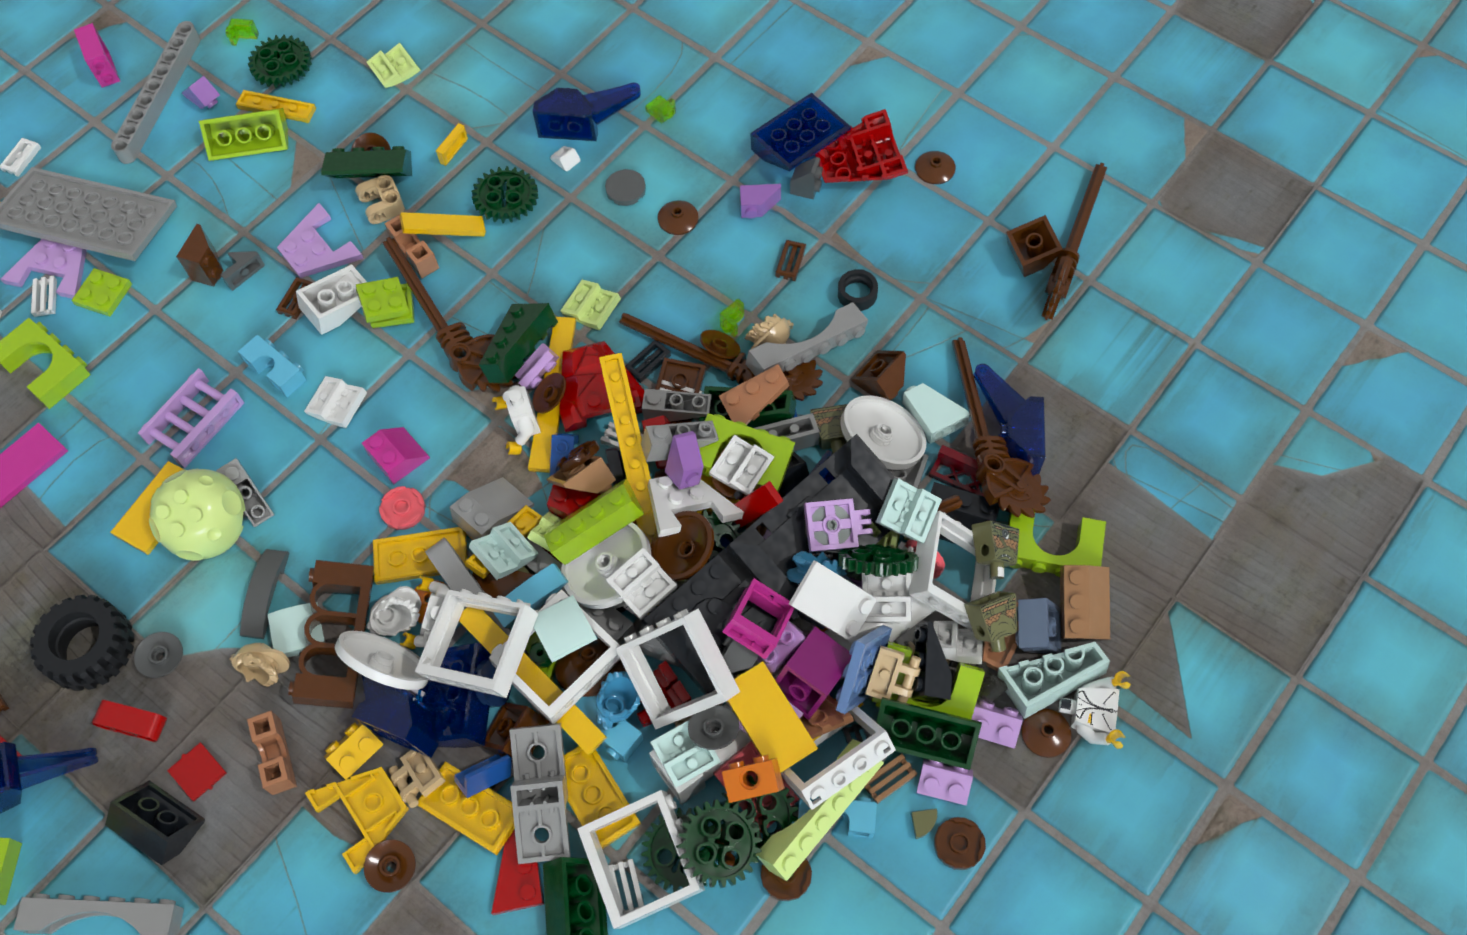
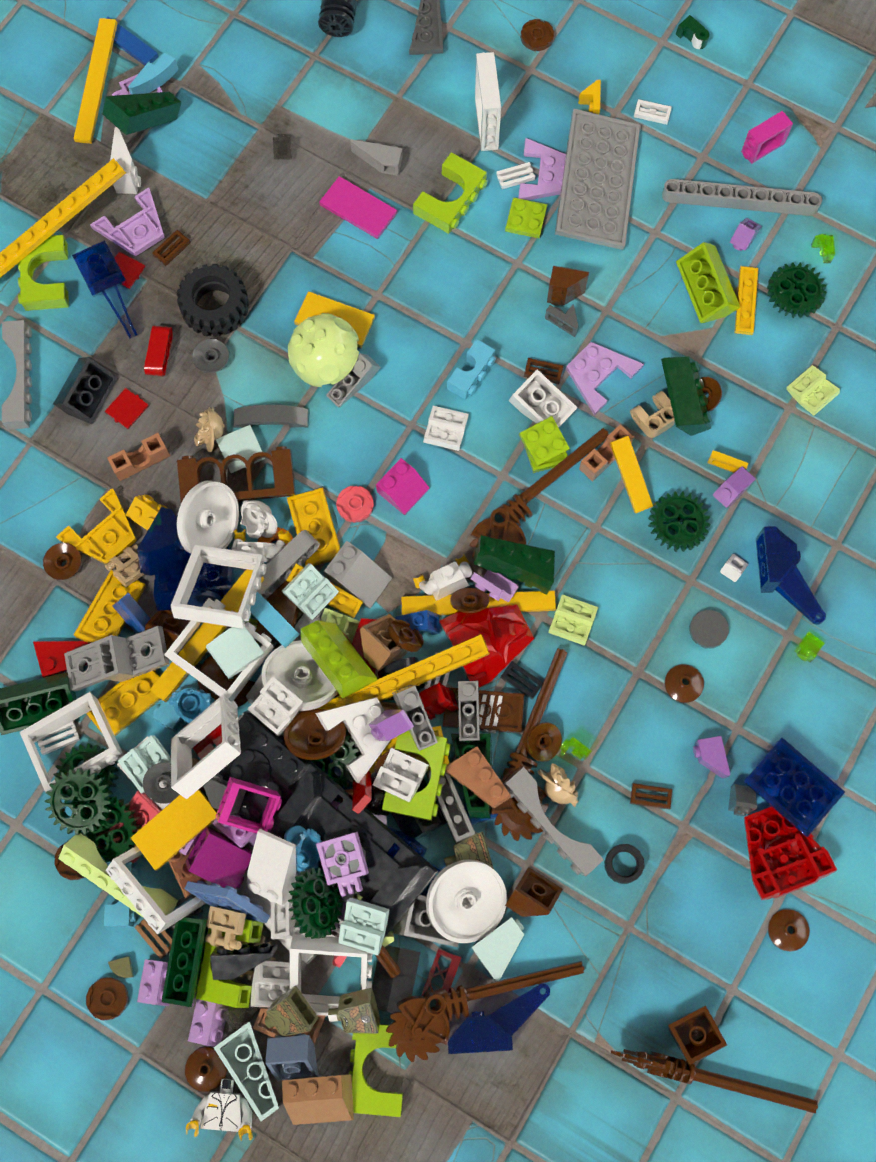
camera: 80 degrees right, 10 degrees up
(204, 431) = (410, 337): lavender fence -> none
(481, 139) = (734, 487): none -> medium lavender slope
(740, 788) = (123, 820): orange brick -> none

